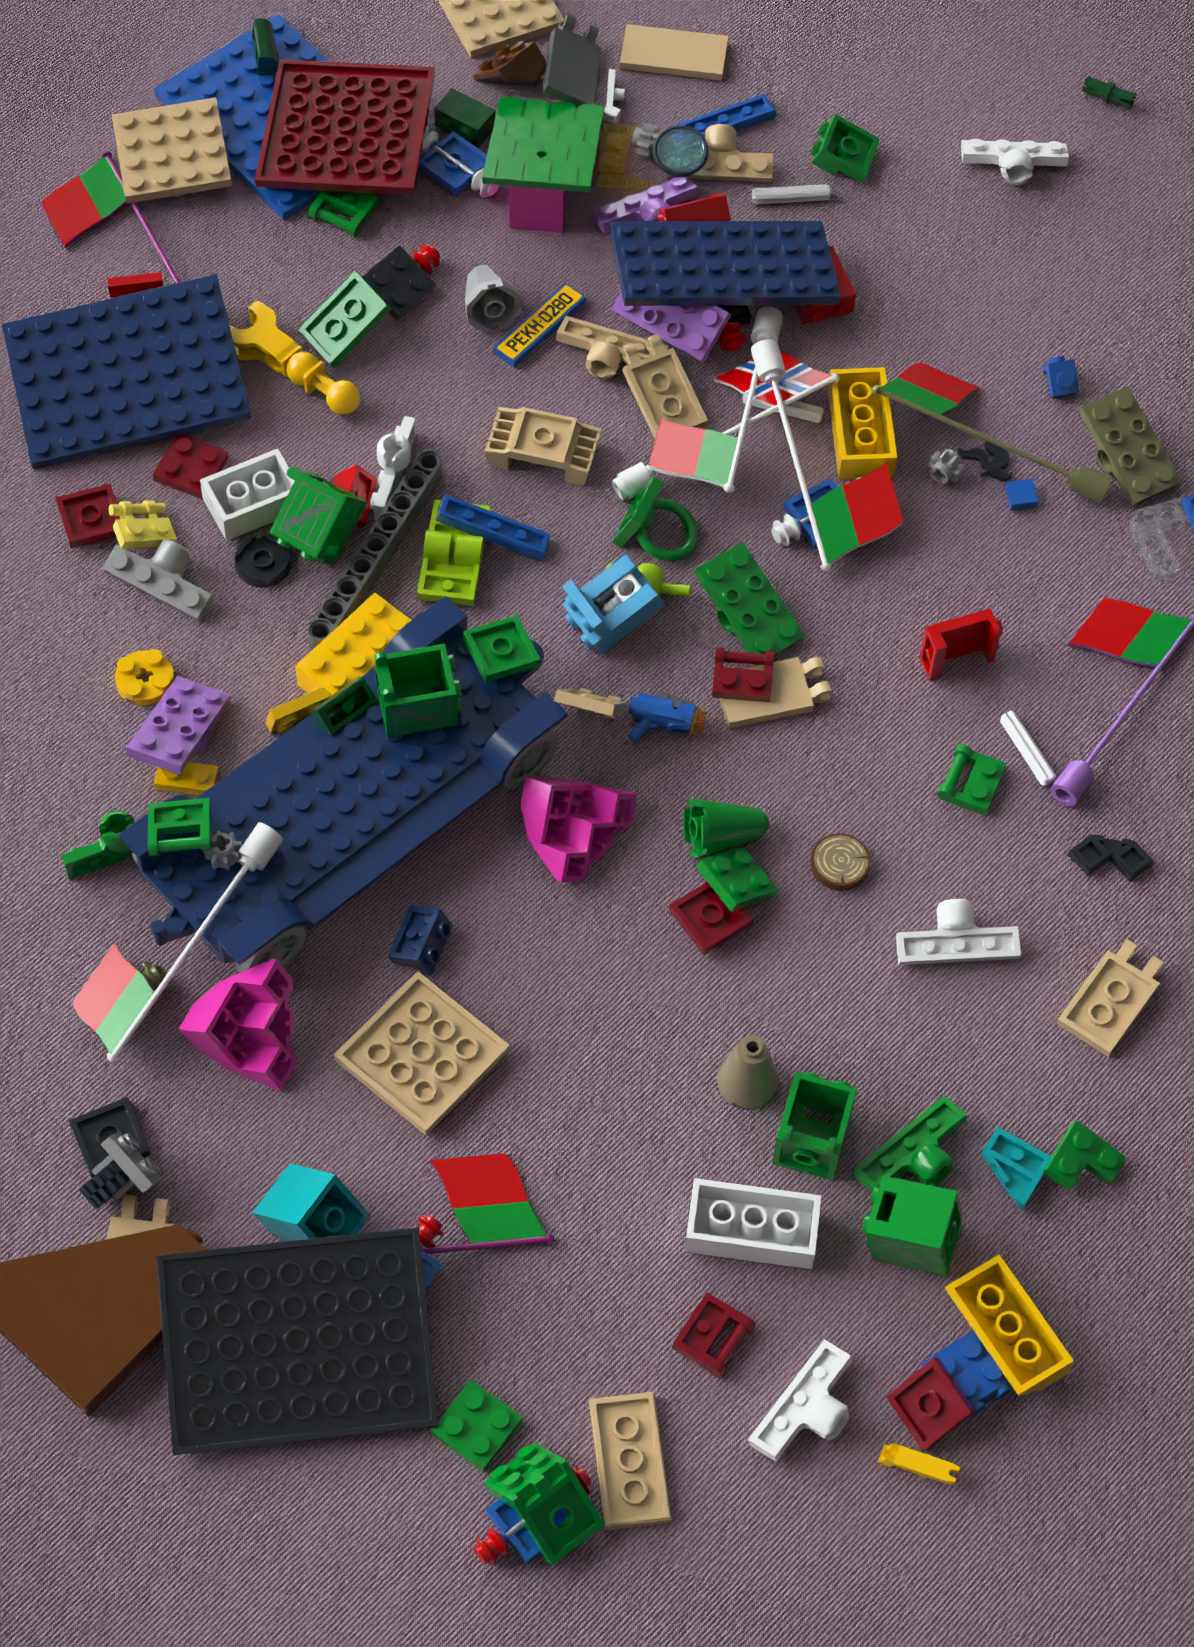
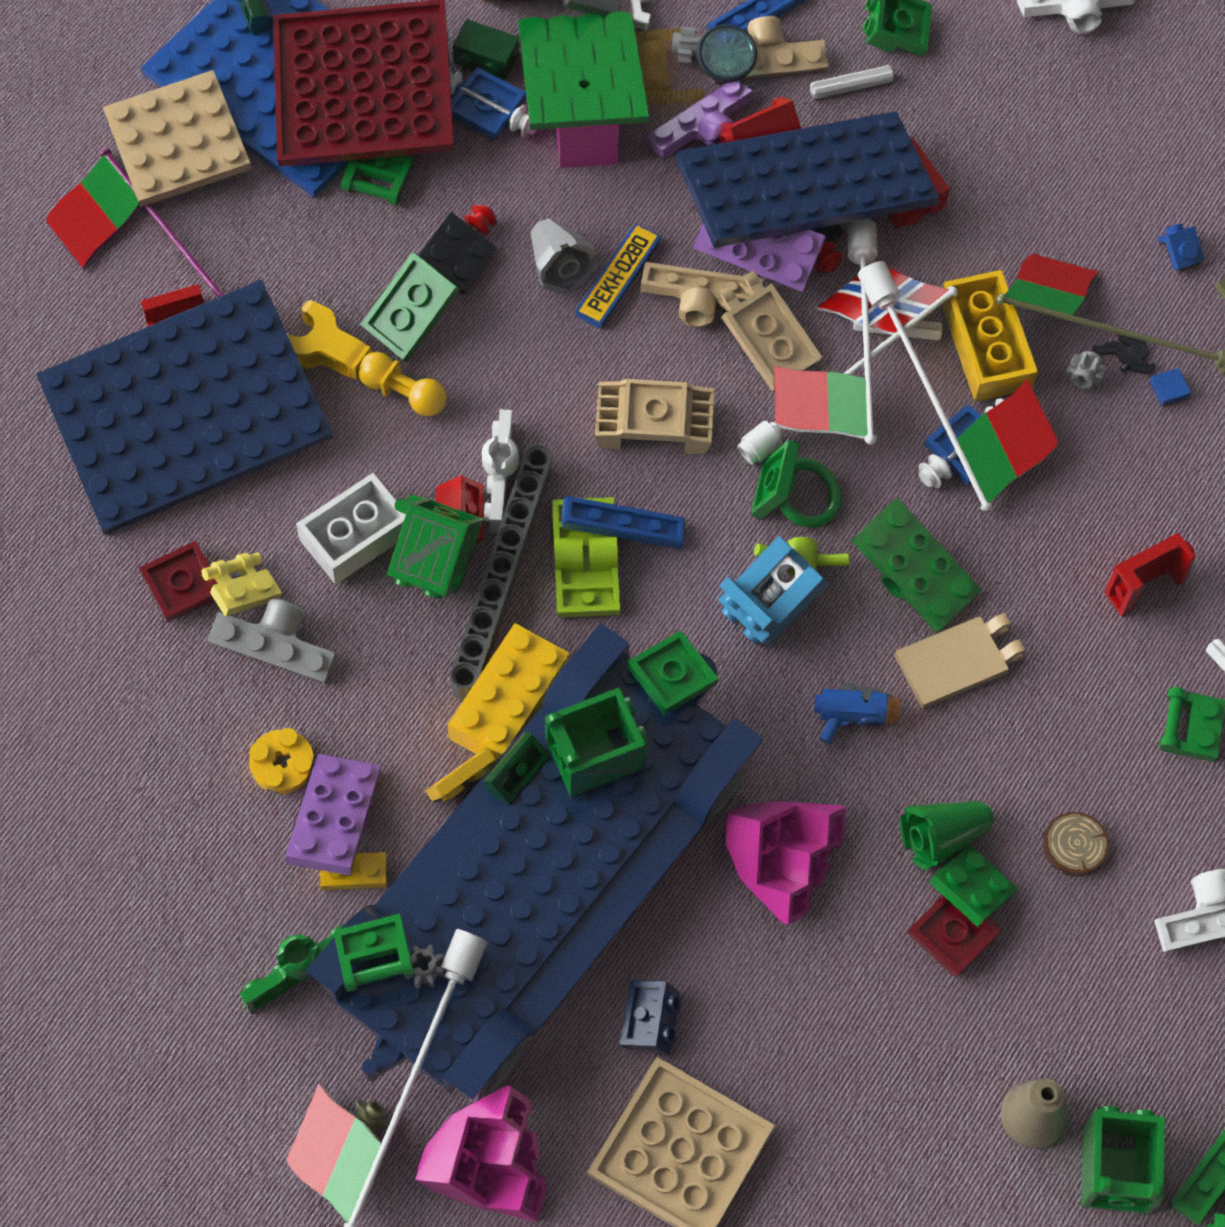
camera: 10 degrees left, 5 degrees up
(187, 463) = (277, 502): dark red plate -> none
(262, 561) = (379, 602): black tile -> none
(585, 700) = (780, 715): tan tile -> none
(742, 683) = (927, 657): dark red plate -> none

